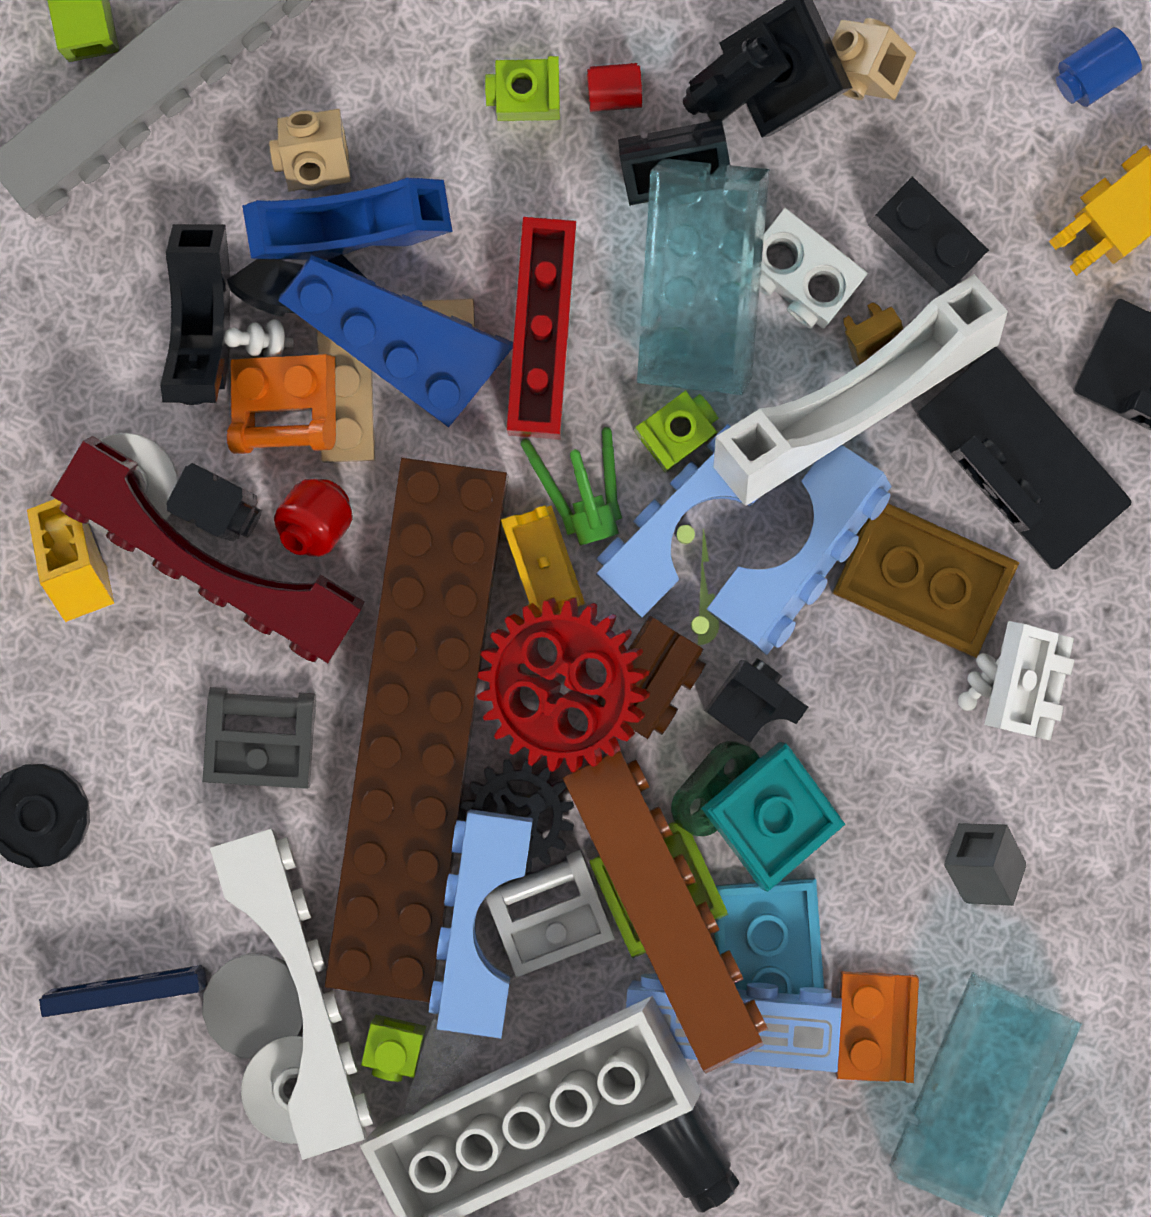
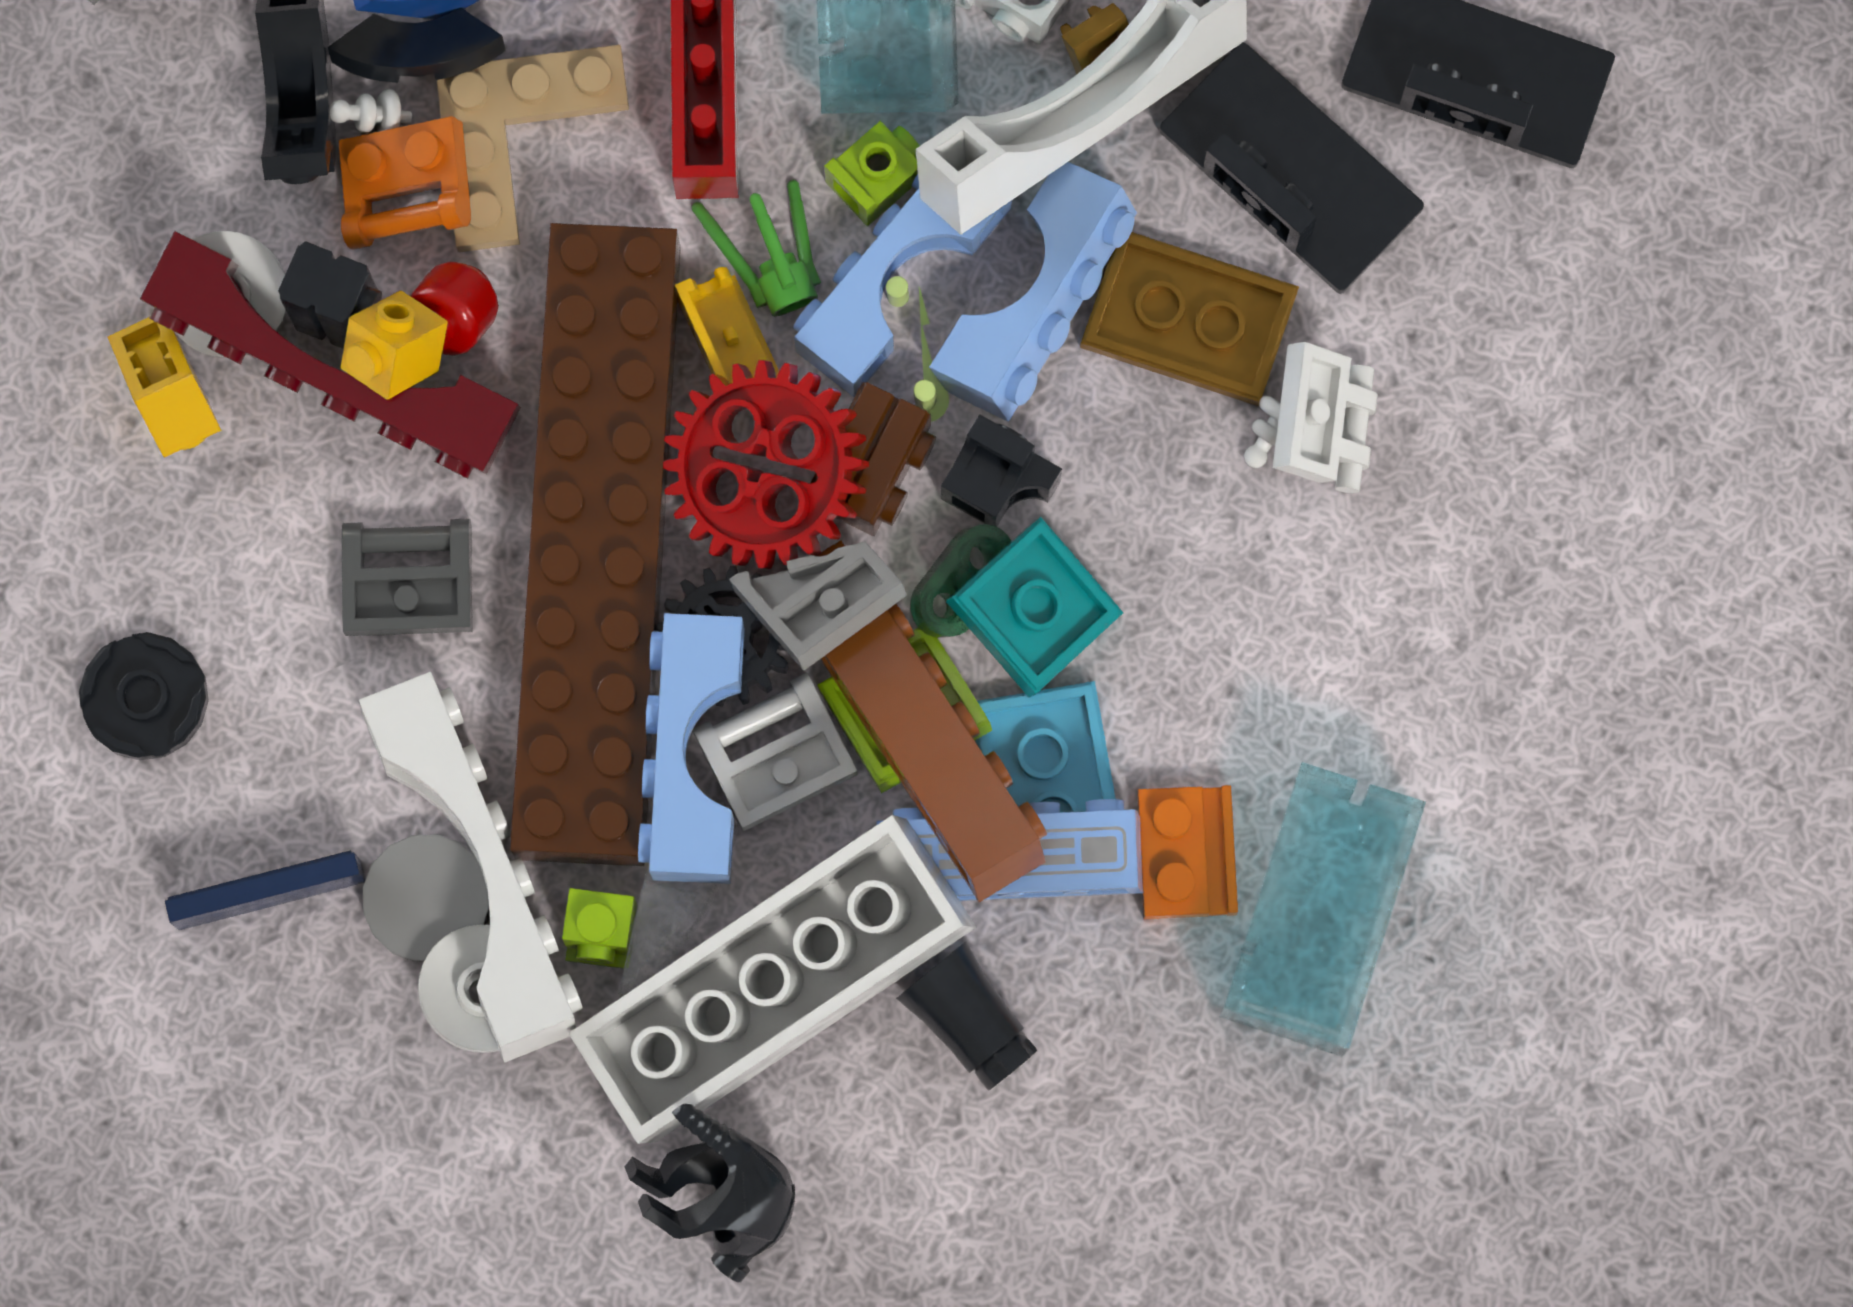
camera: 10 degrees left, 10 degrees down
(260, 554) = (393, 344): none -> yellow brick
(414, 348) = (547, 97): blue wing -> none
(598, 807) = (821, 599): none -> light grey wing
(985, 864) = (1296, 642): dark grey panel -> none

